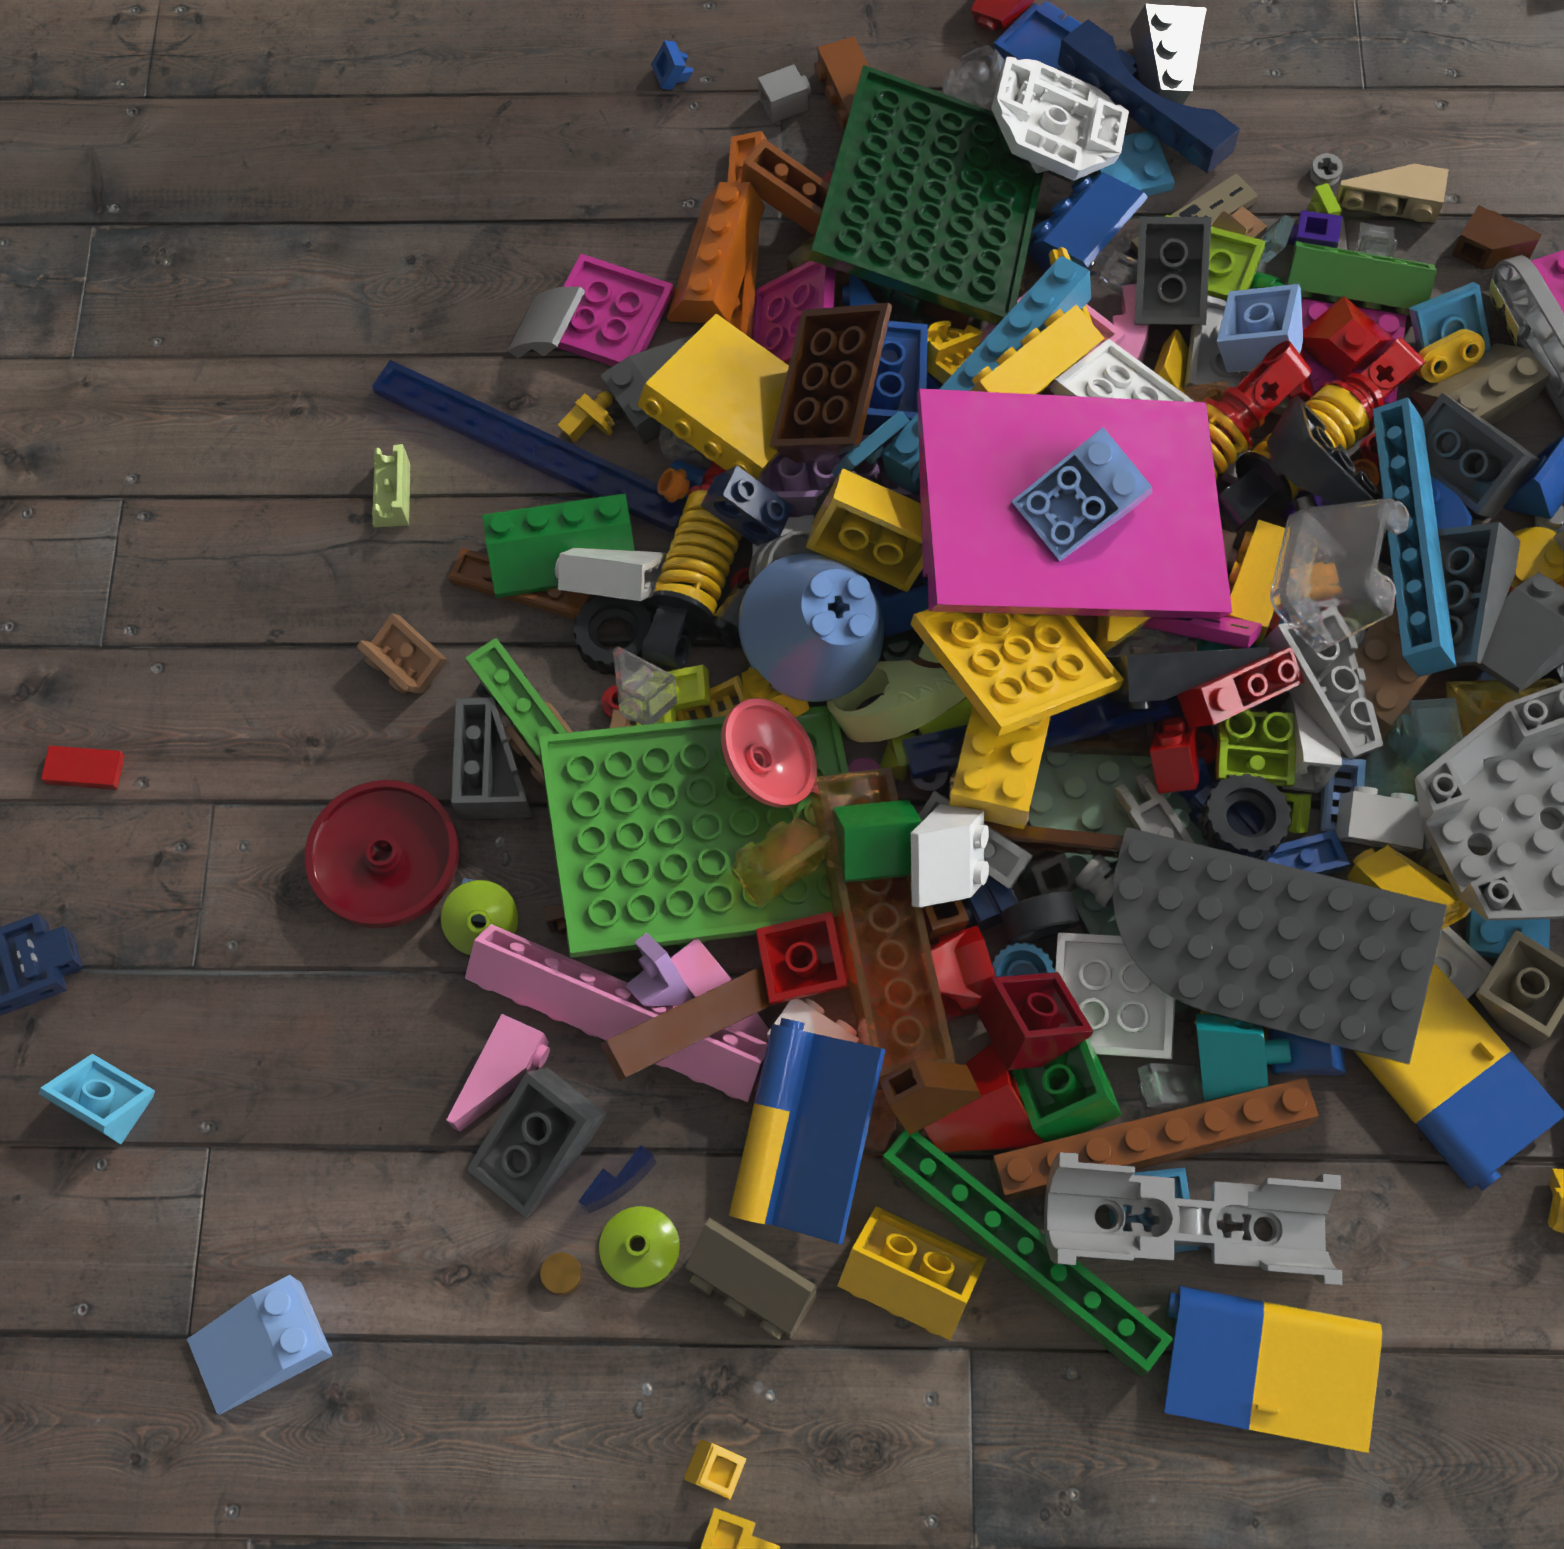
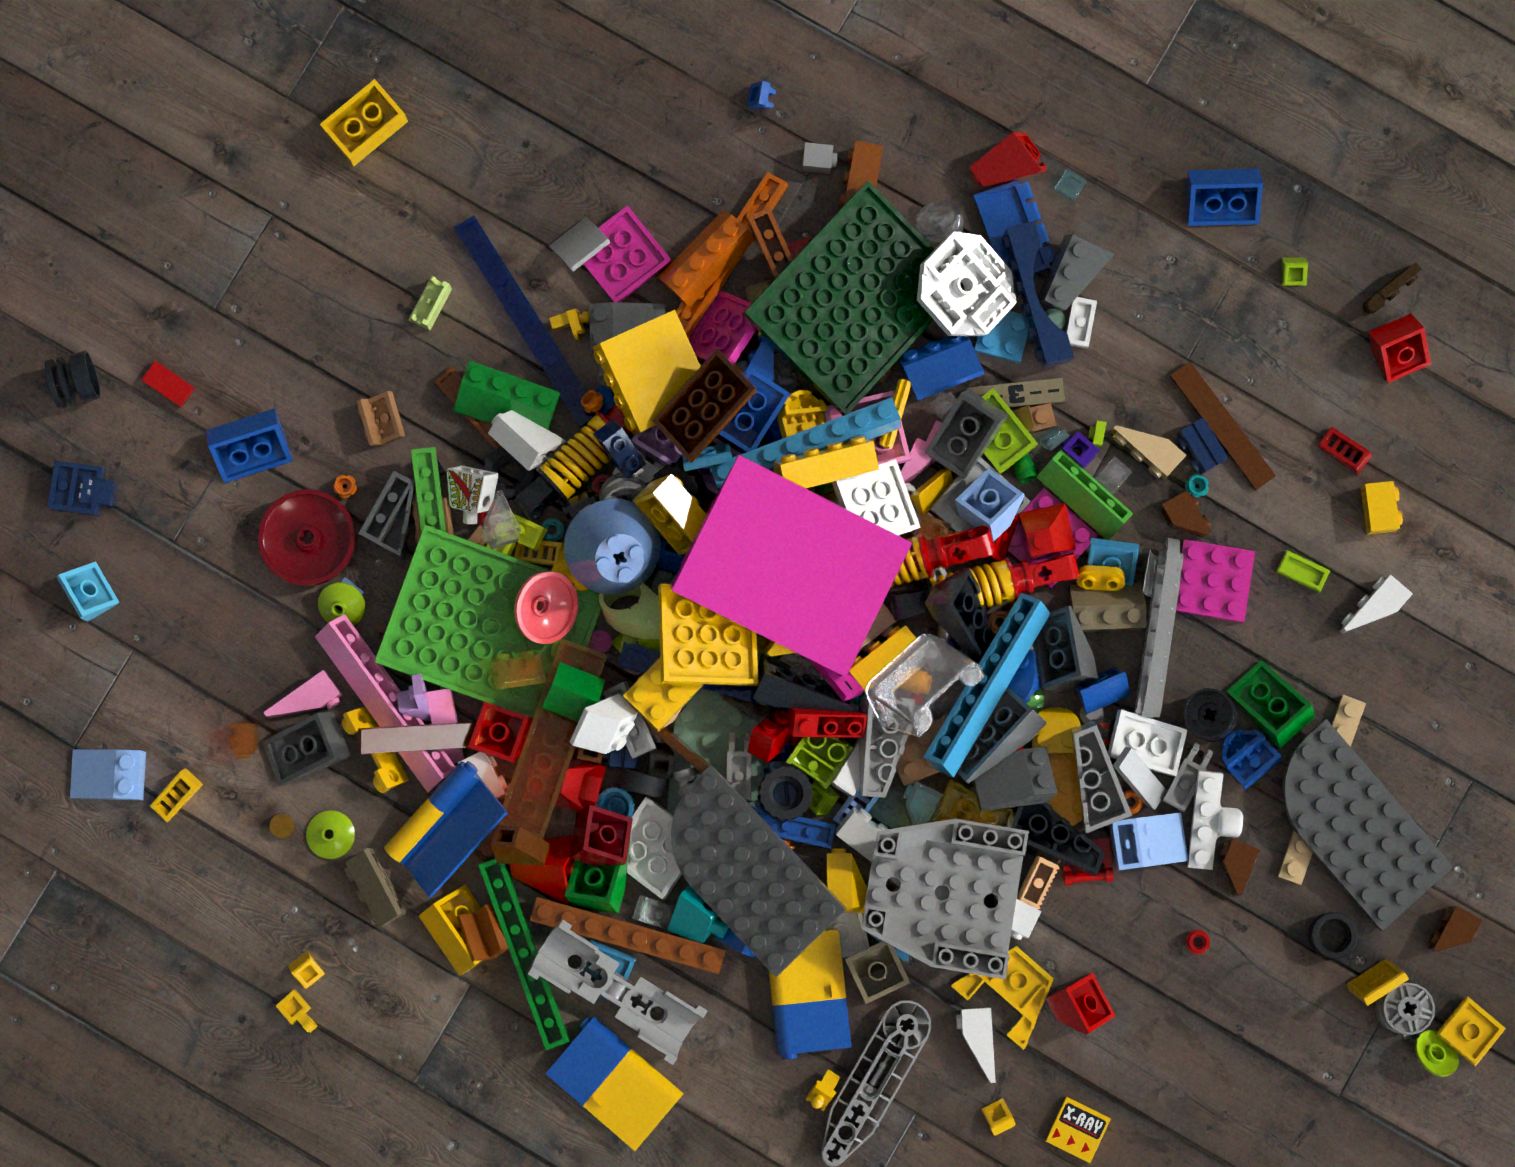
camera: 25 degrees right, 15 degrees up
(187, 325) = (364, 122): none -> yellow brick
(237, 783) = (248, 445): none -> blue slope
(393, 759) = (338, 486): none -> orange plate
(396, 1305) = (190, 780): none -> yellow slope
(438, 1178) = (244, 739): none -> clear orange brick
(577, 674) = (471, 491): none -> torso
(607, 1188) = (330, 795): clear blue slope -> none
(675, 1105) = (390, 770): none -> yellow brick
(720, 664) = (560, 529): none -> teal plate
(950, 1253) = (483, 934): none -> dark orange panel
(1083, 495) = (795, 569): light blue slope -> none
(1212, 94) = (1081, 322): none -> white plate
(1334, 166) = (1128, 405): light grey bush -> none
(1460, 130) = (1222, 425): none -> reddish brown tile
(1461, 154) = (1201, 447): none -> dark blue brick
(1482, 197) = (1201, 481): none -> teal plate

